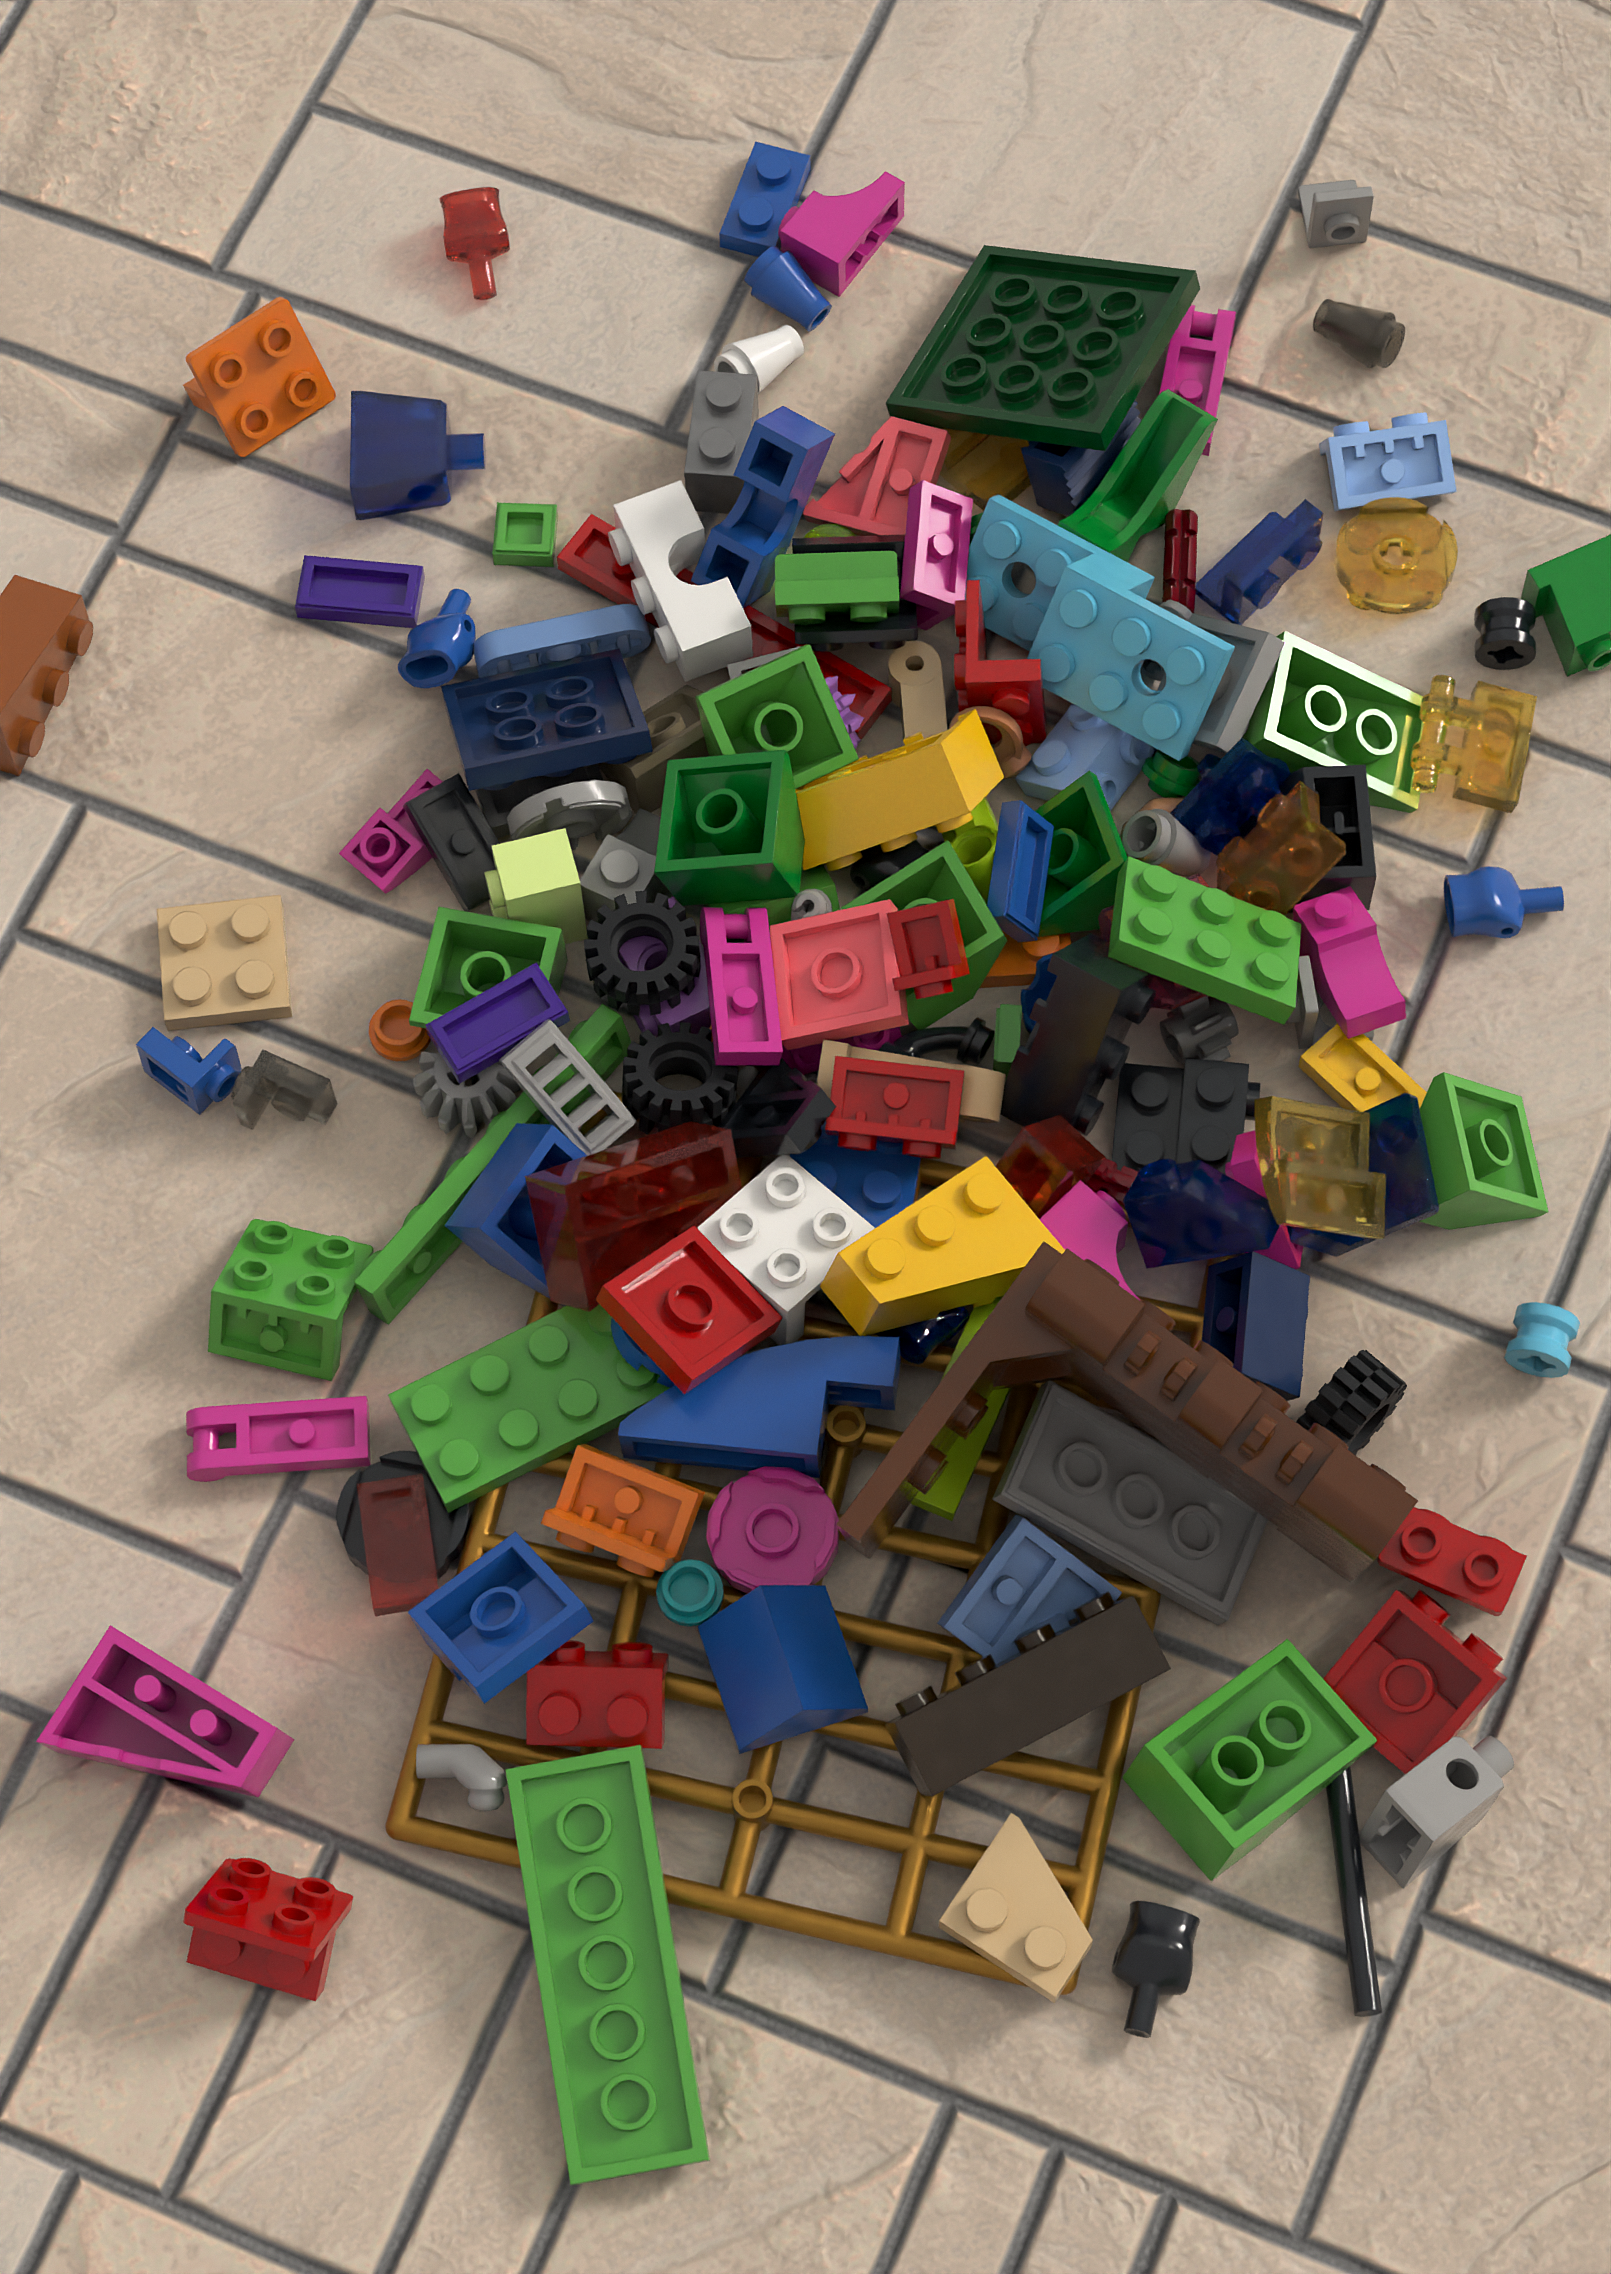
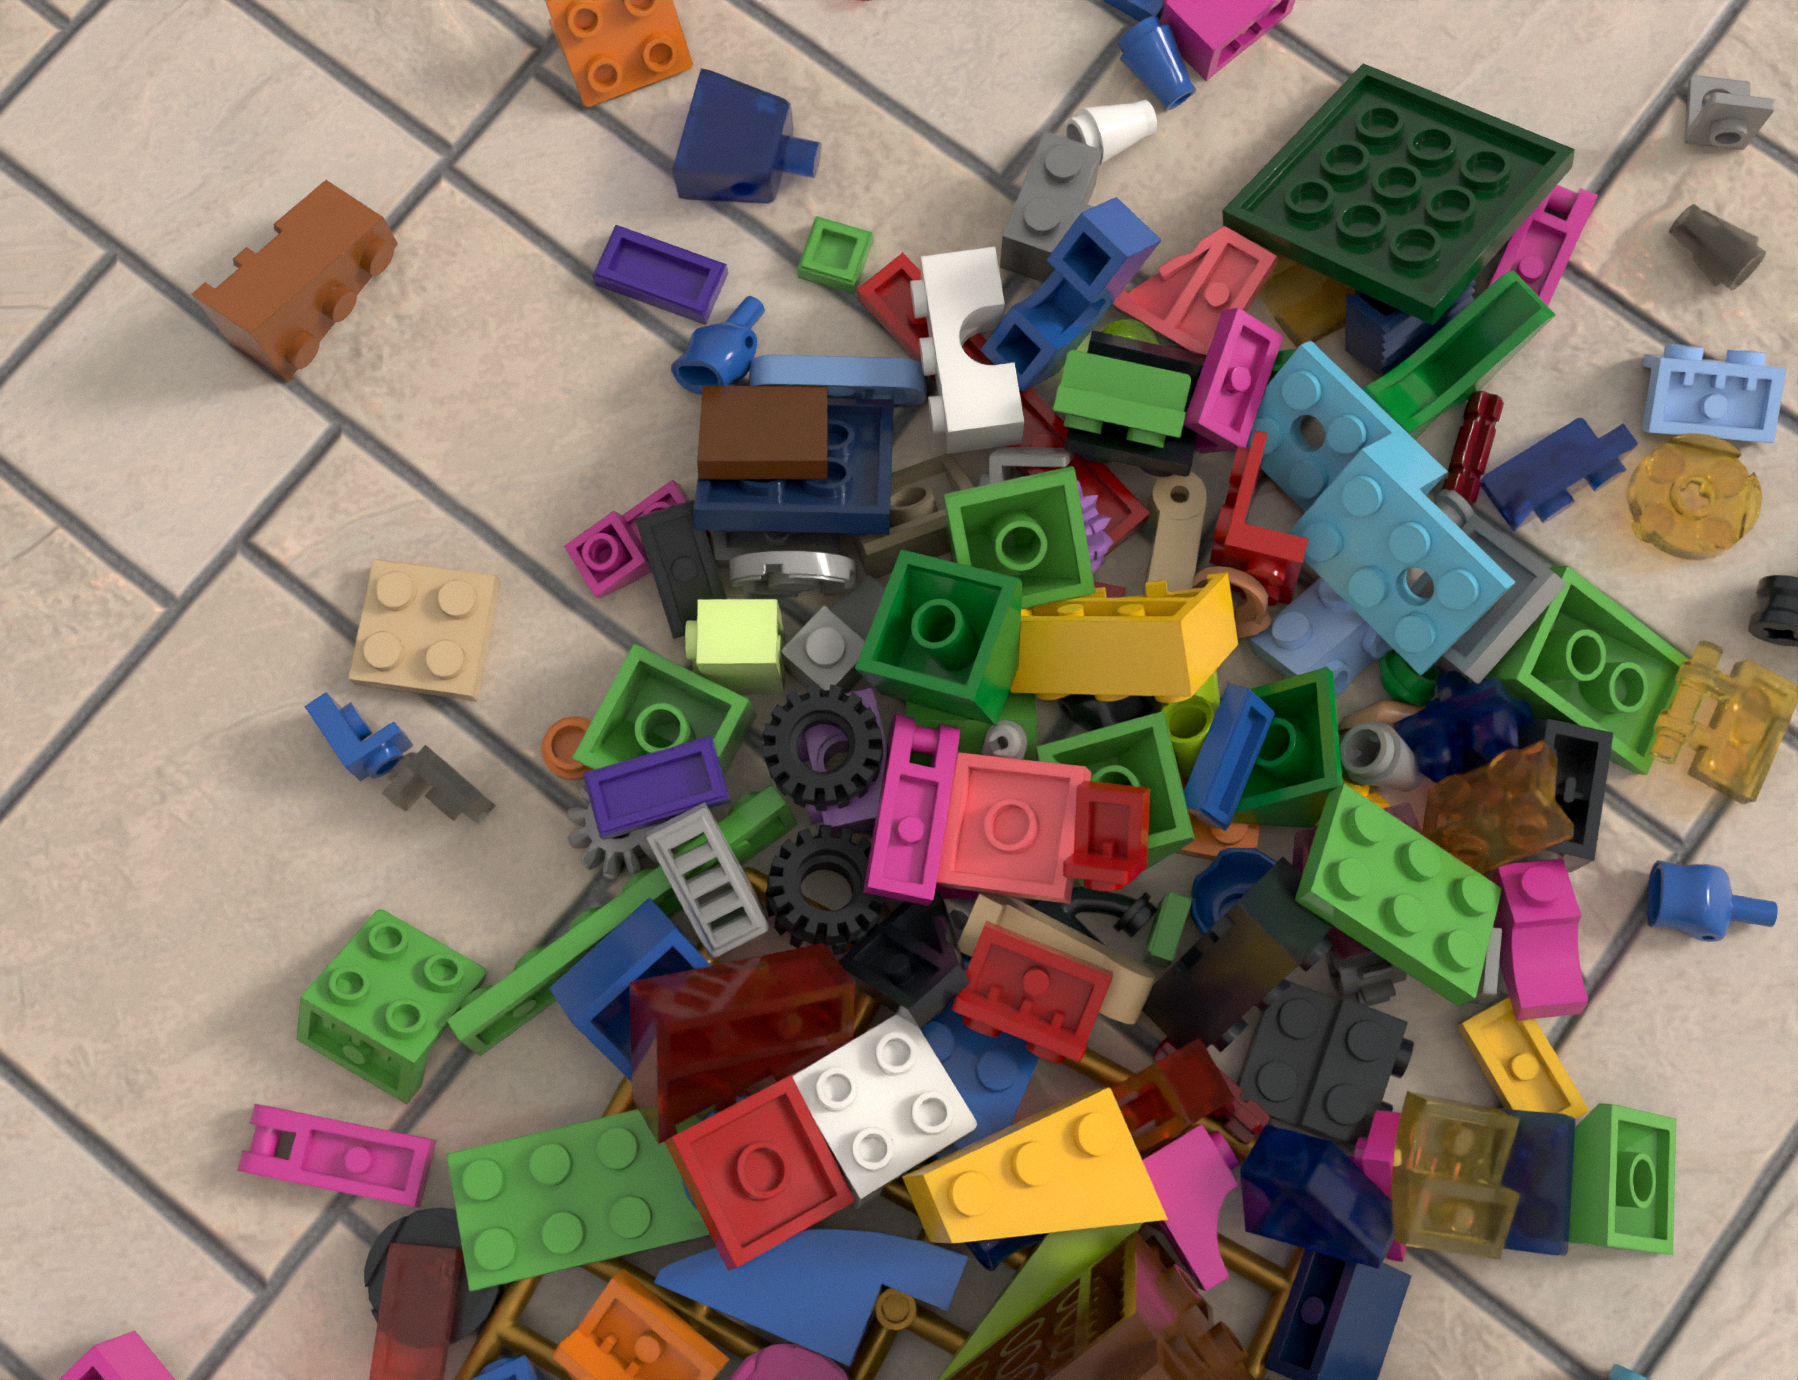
camera: 15 degrees right, 10 degrees up
(507, 696) = (763, 433): none -> reddish brown tile

